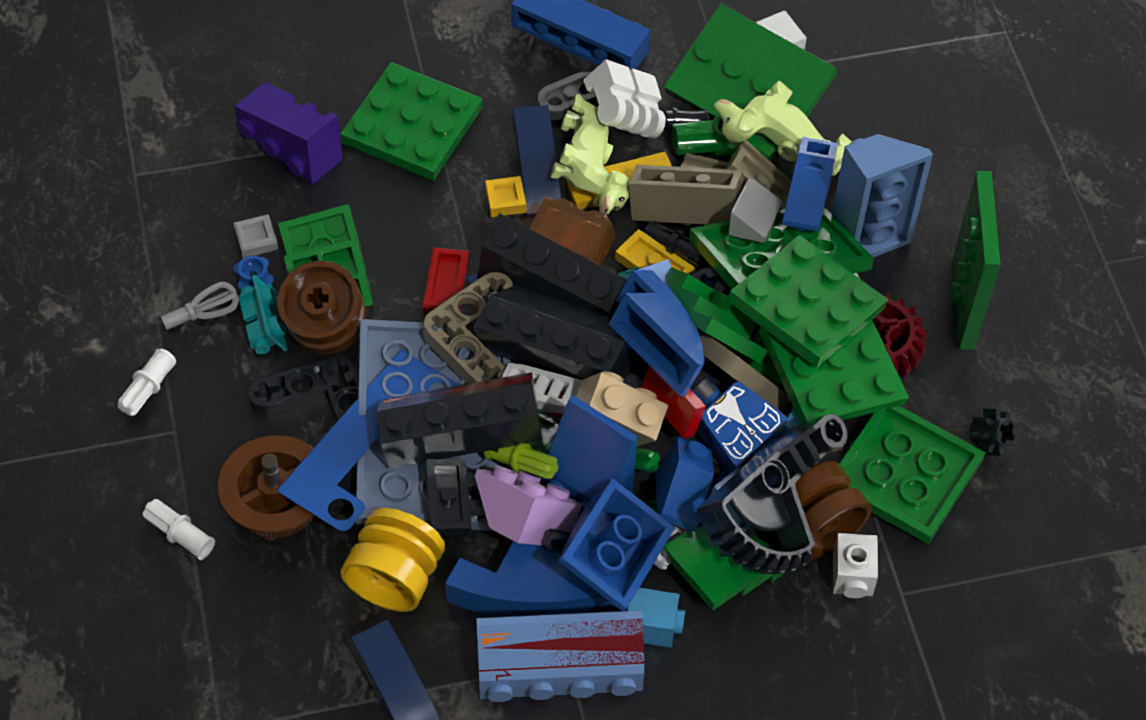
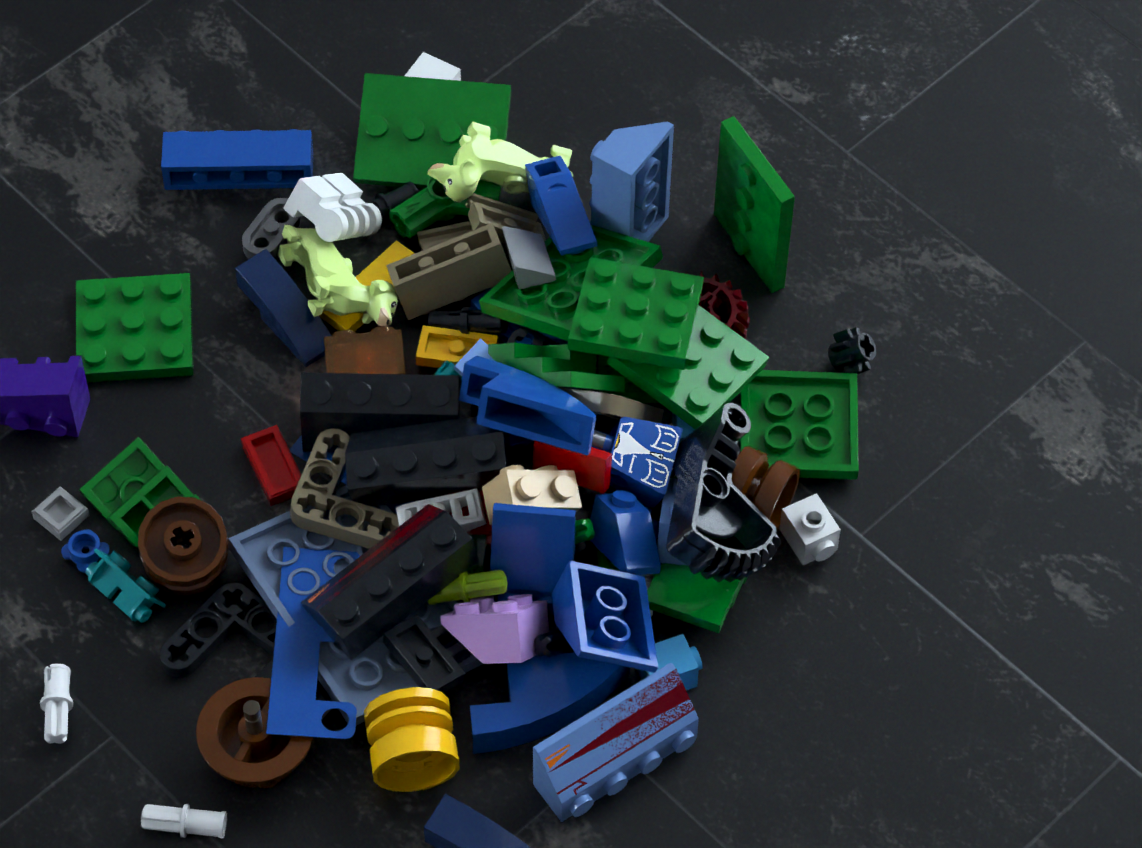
camera: 30 degrees left, 0 degrees up
(193, 310) = (50, 615): light grey piece -> none
(505, 196) = (276, 356): yellow plate -> none

